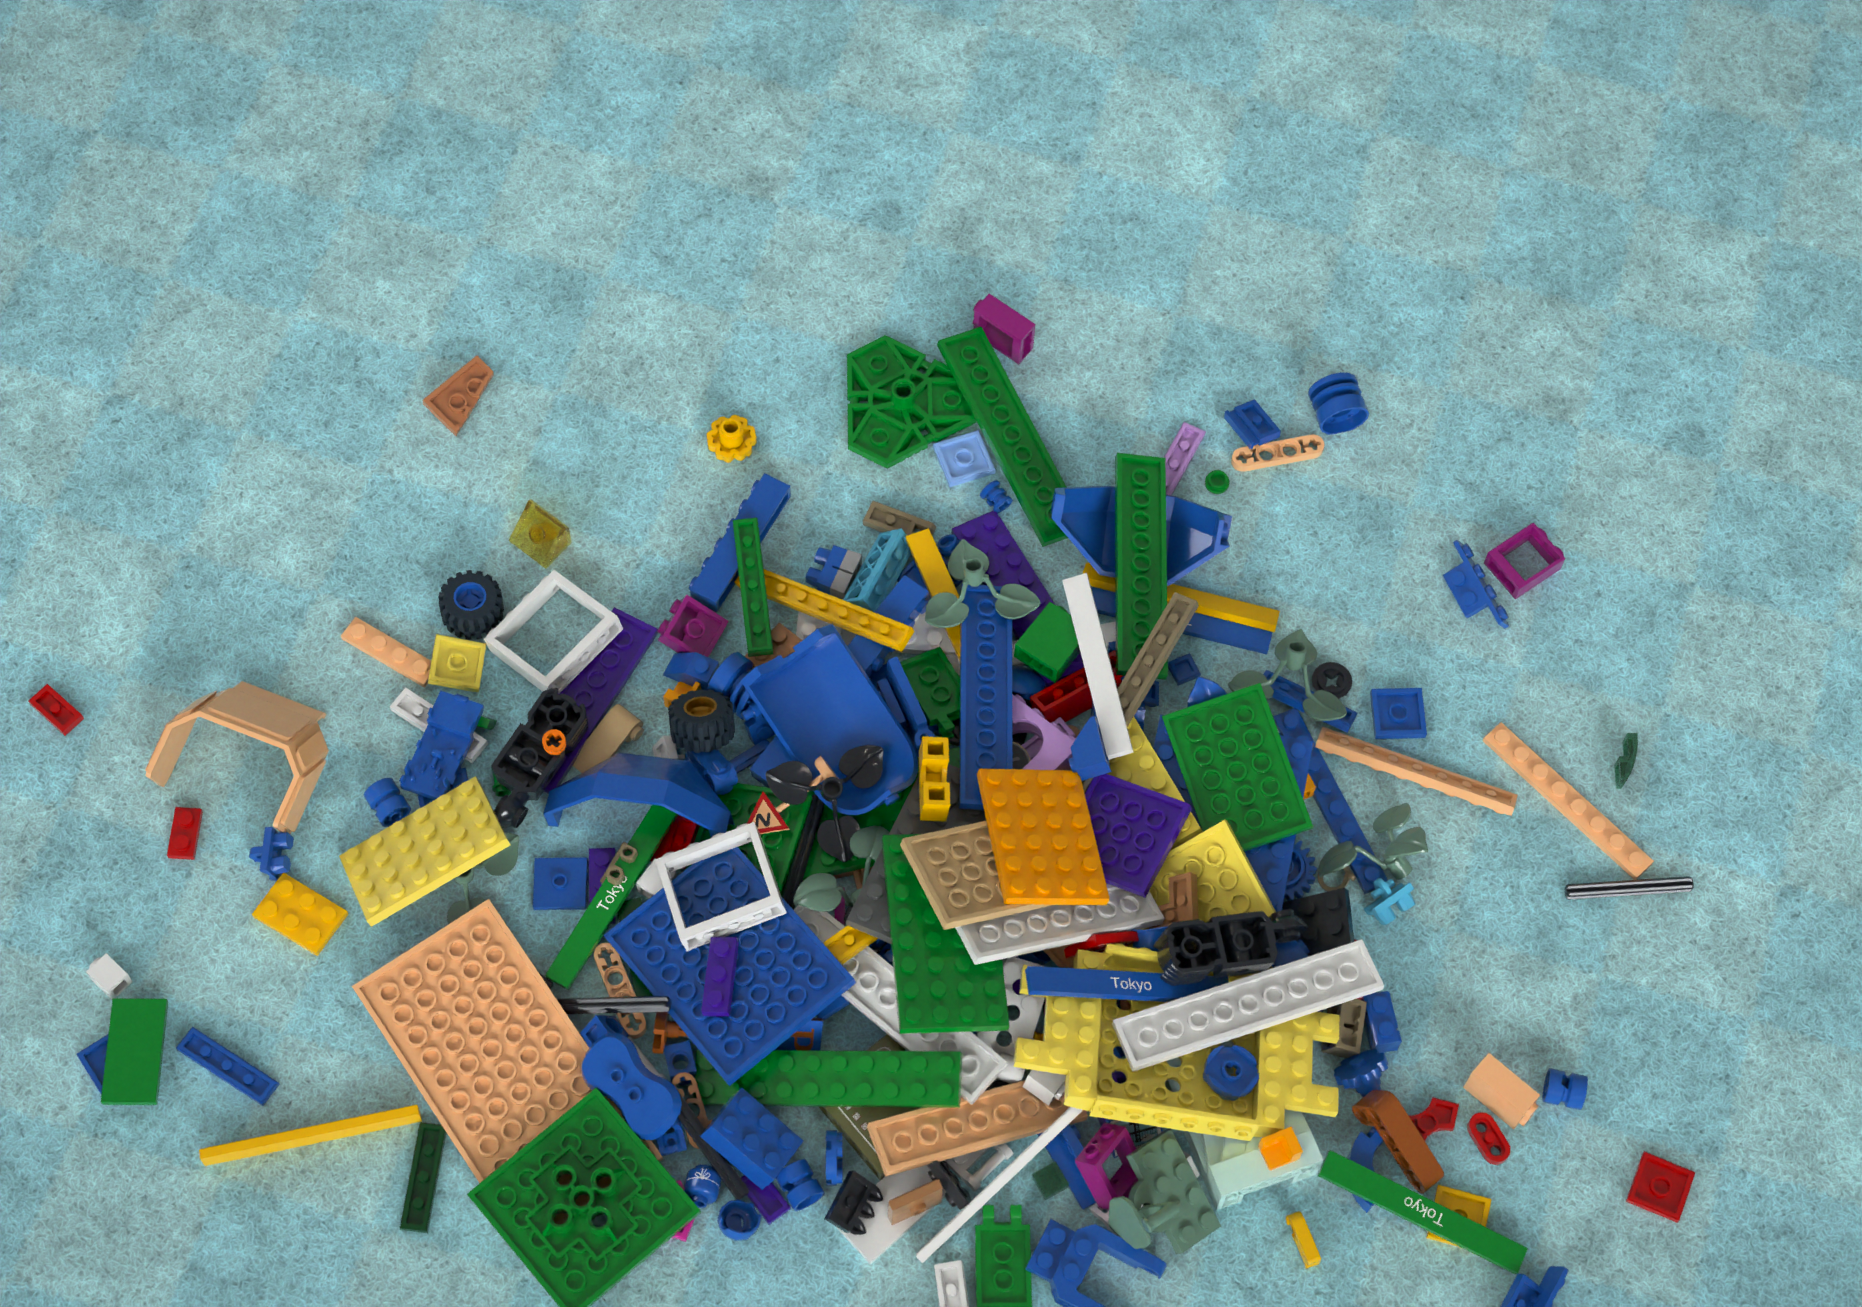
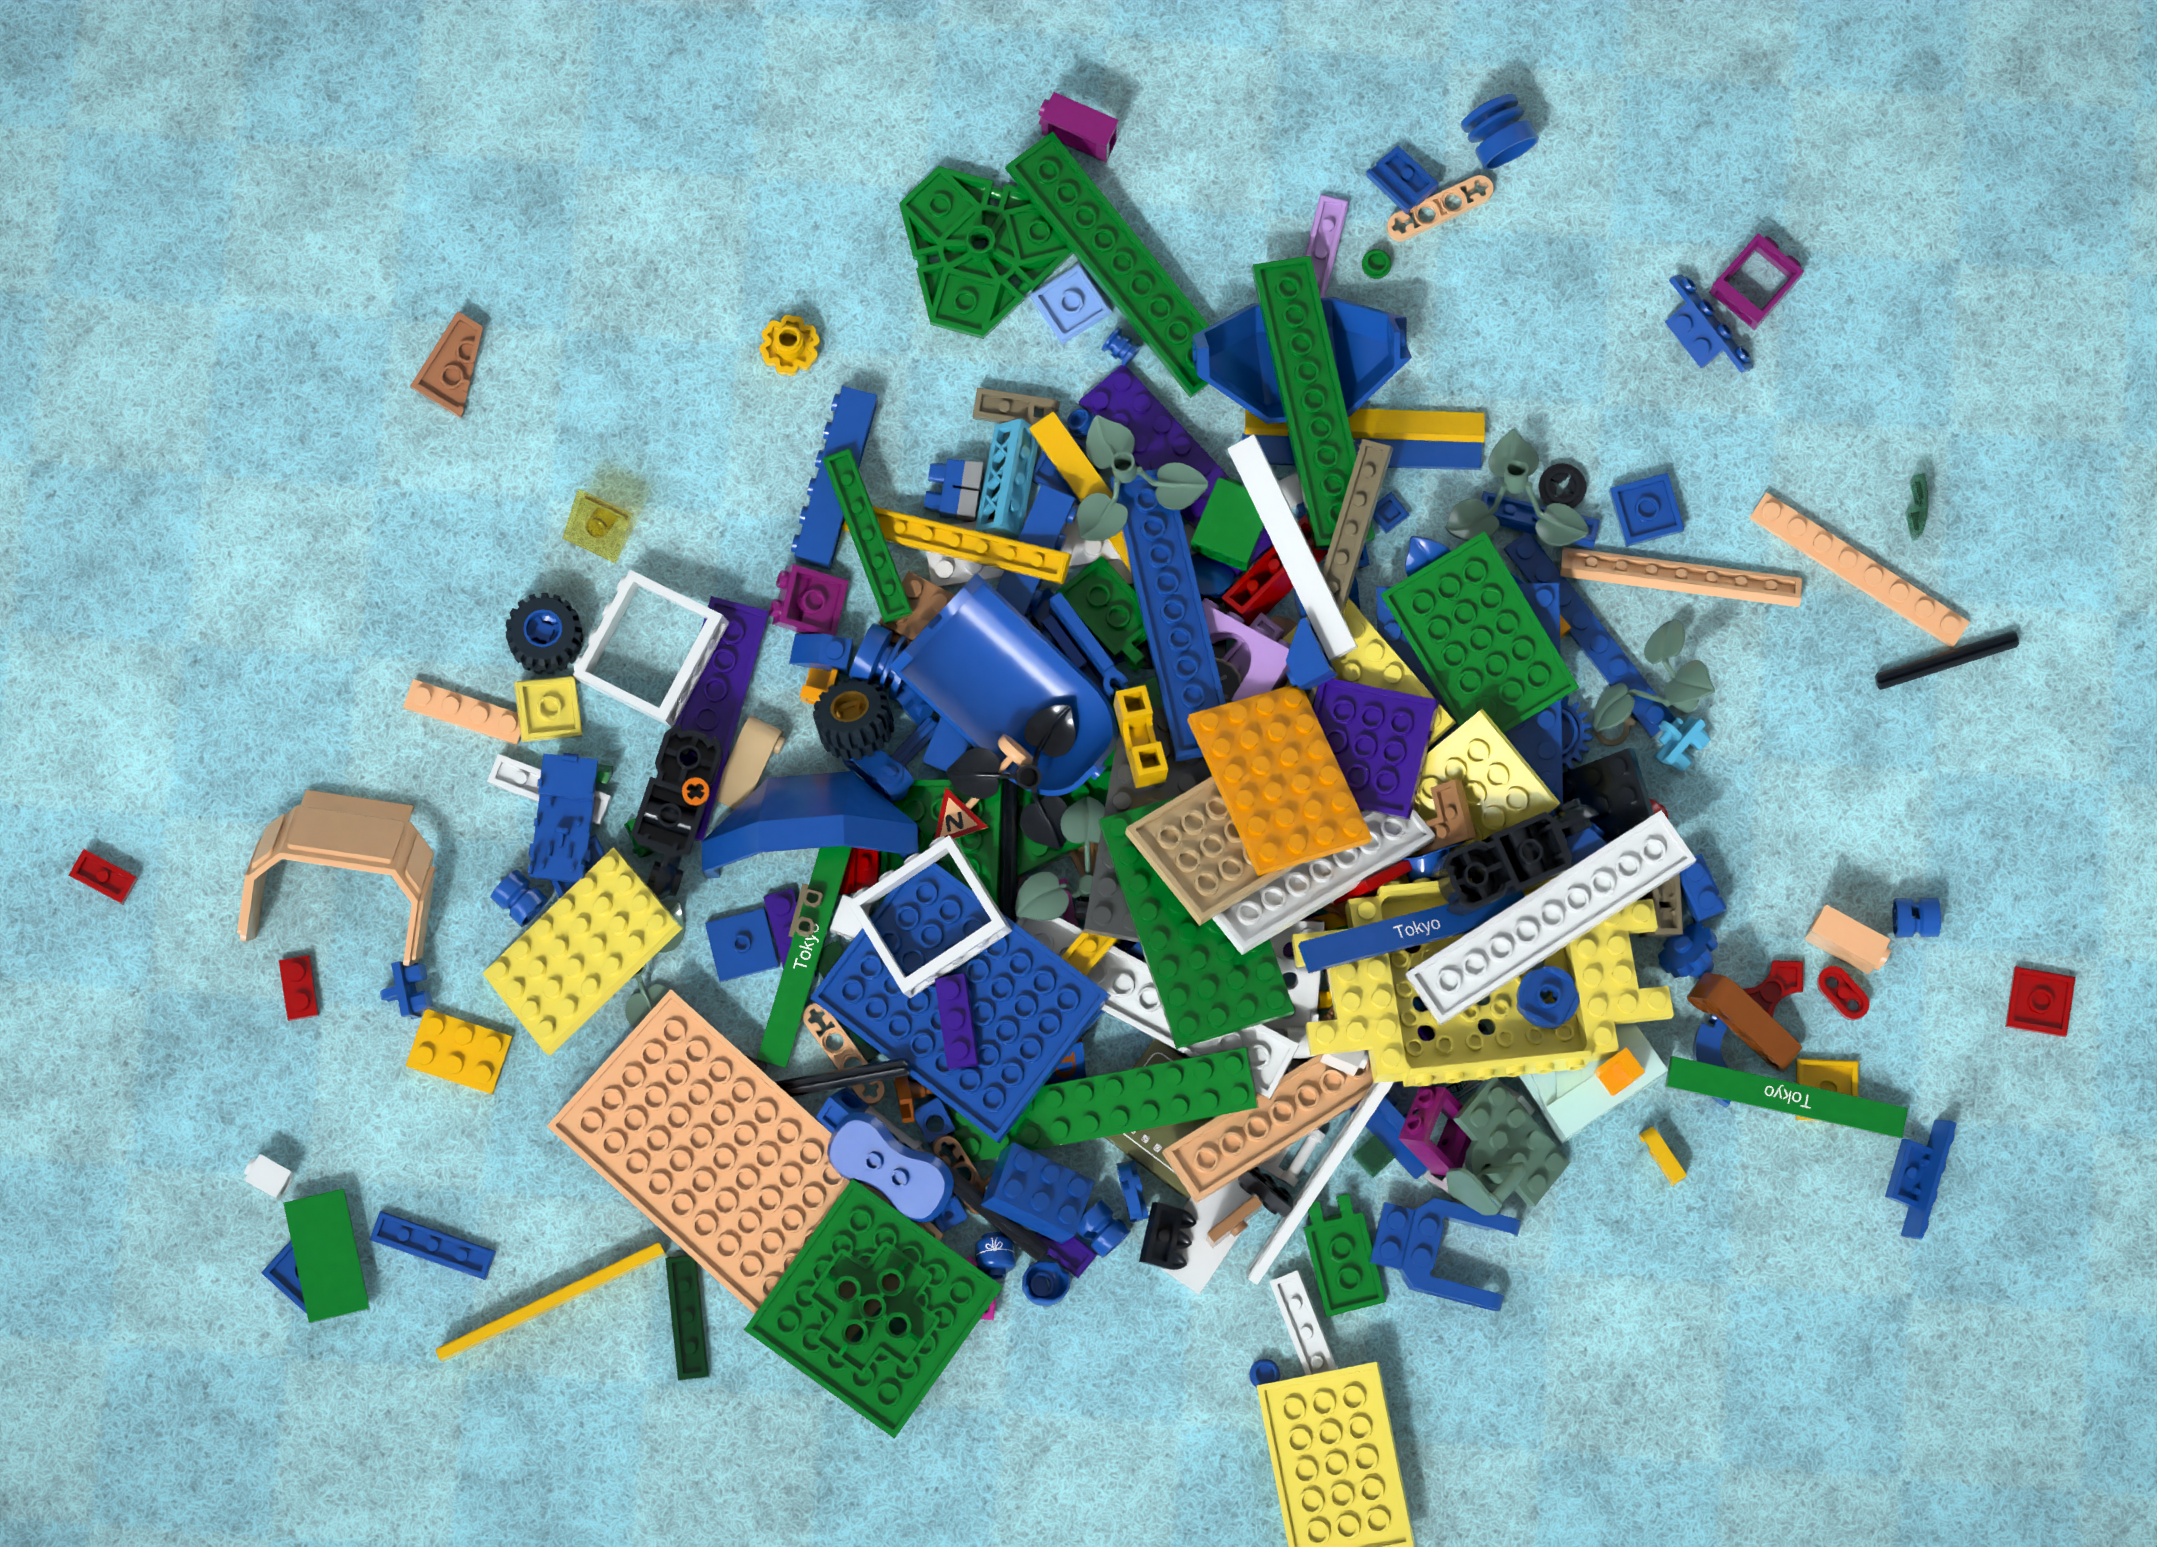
camera: 10 degrees left, 15 degrees up
(666, 749) = (819, 760): white tile -> none

